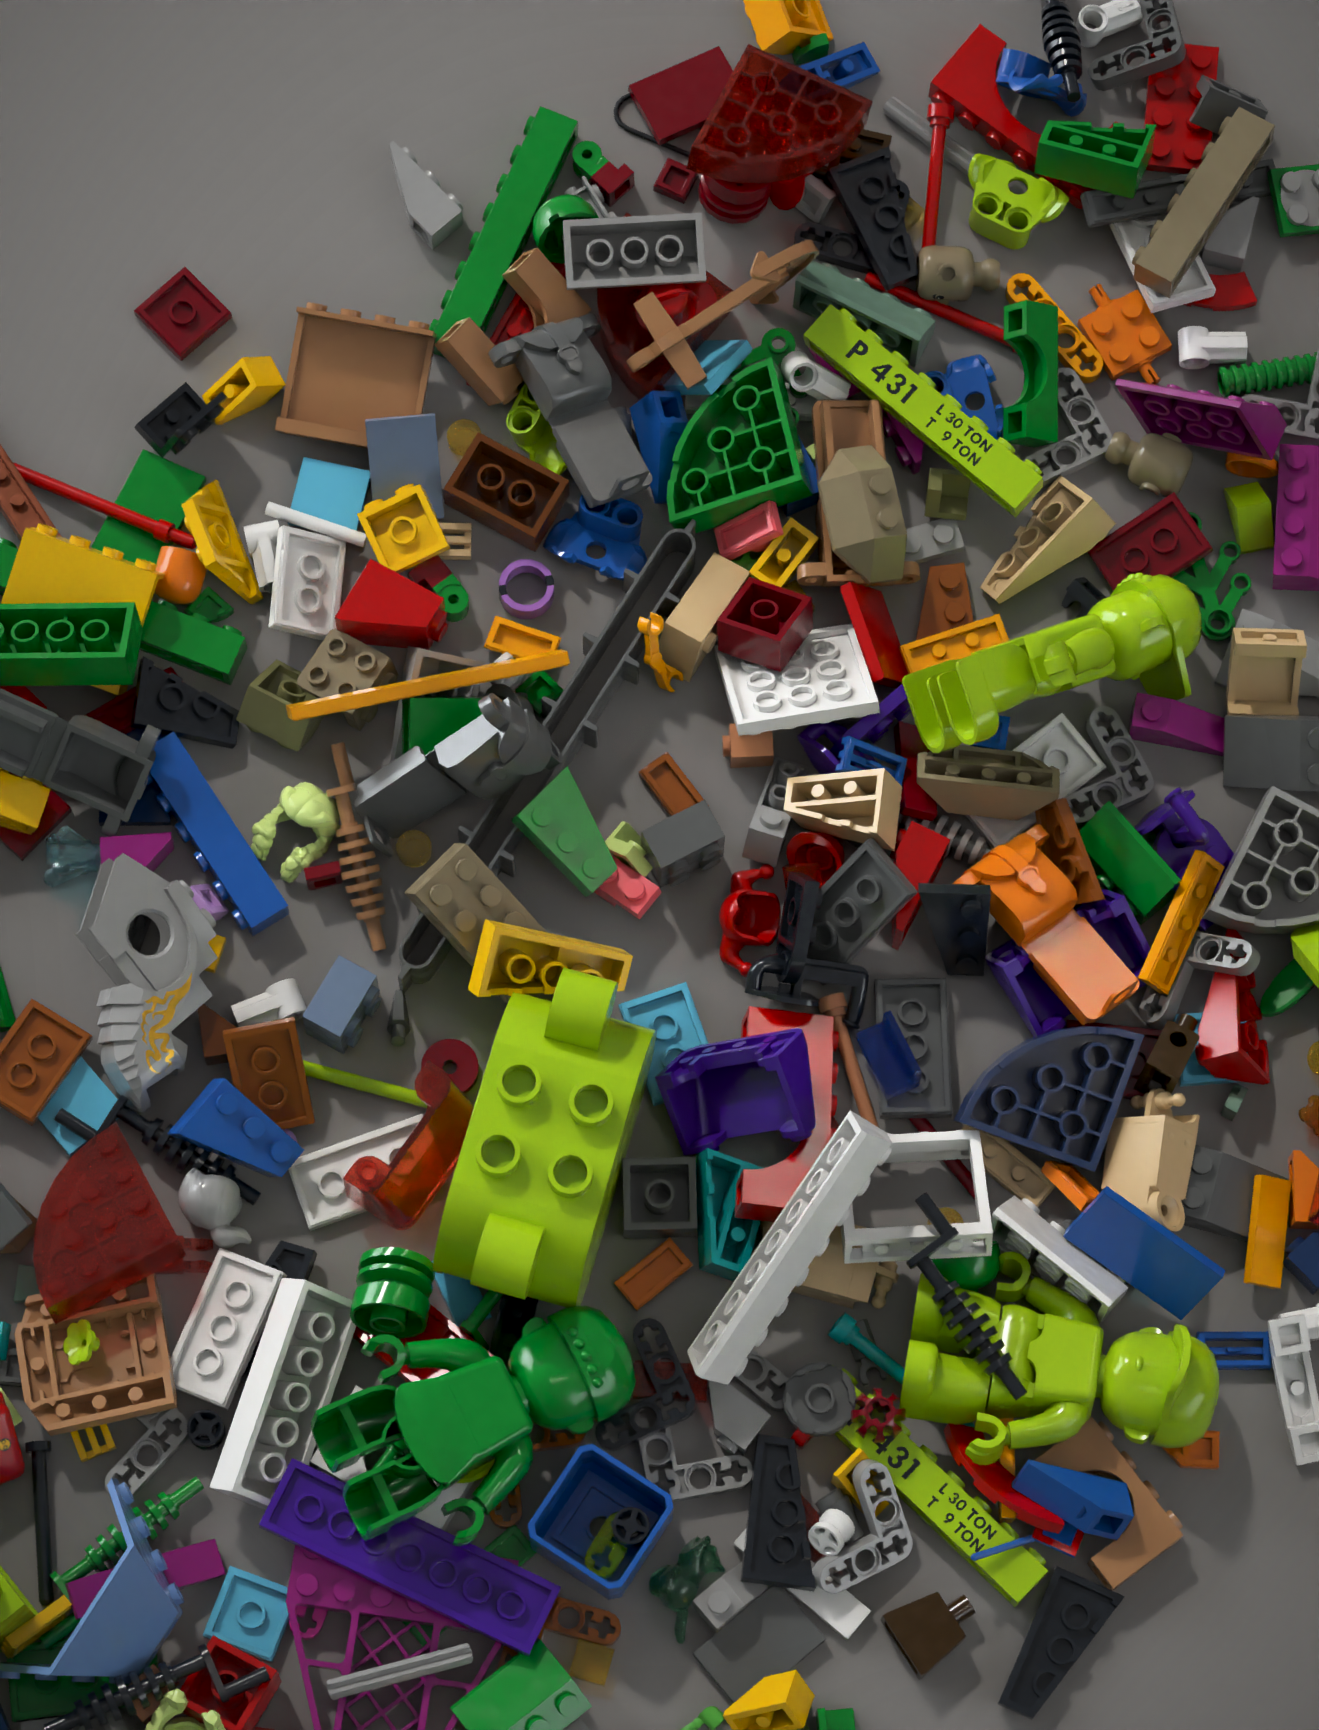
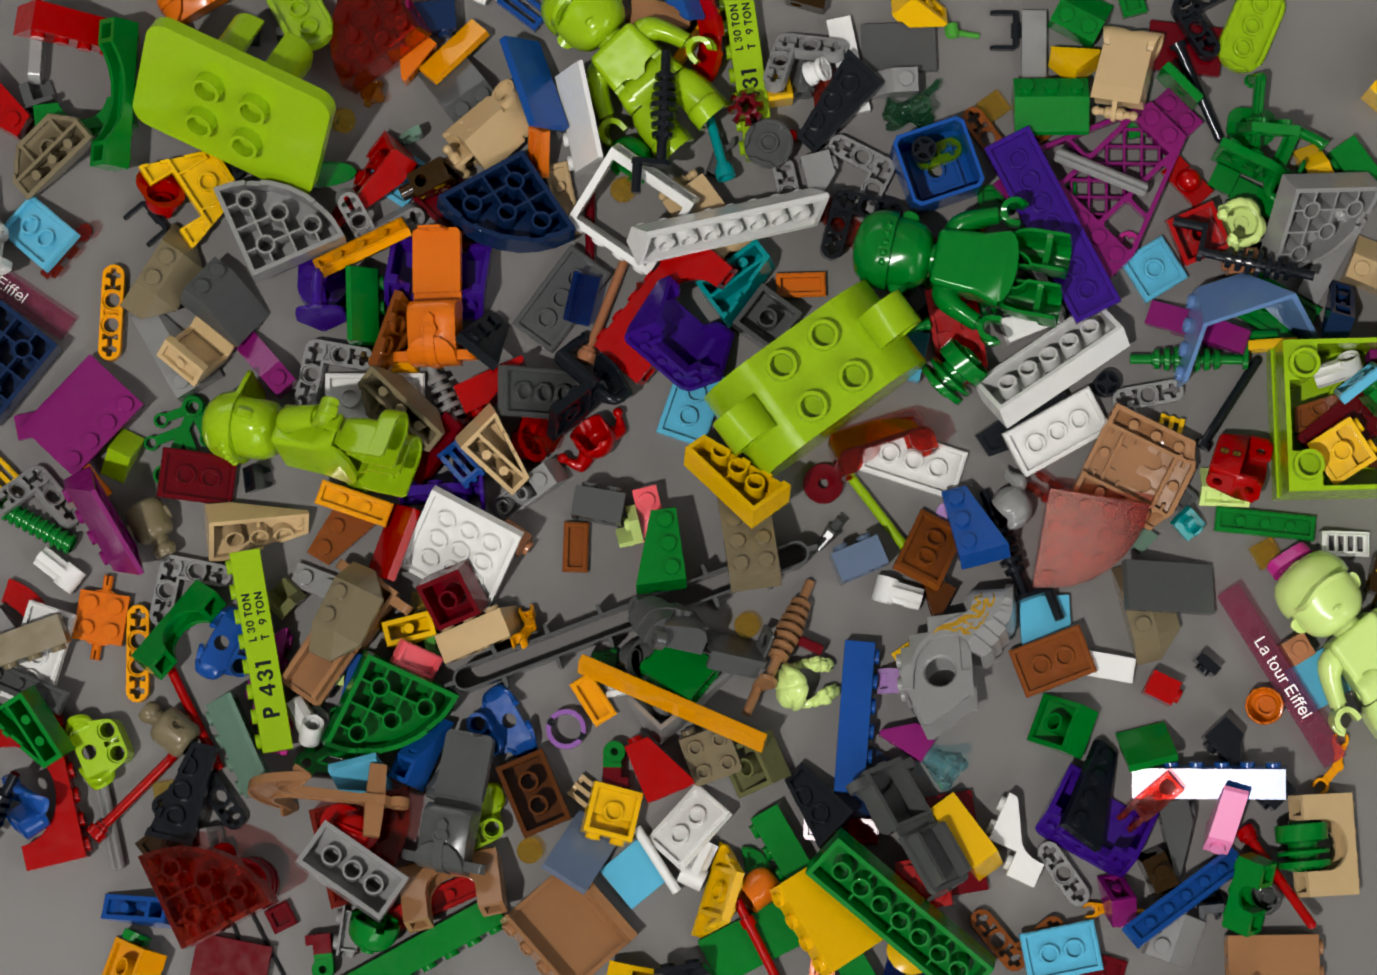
camera: 140 degrees left, 10 degrees up
(80, 1342) = (1141, 479): lime plant -> none

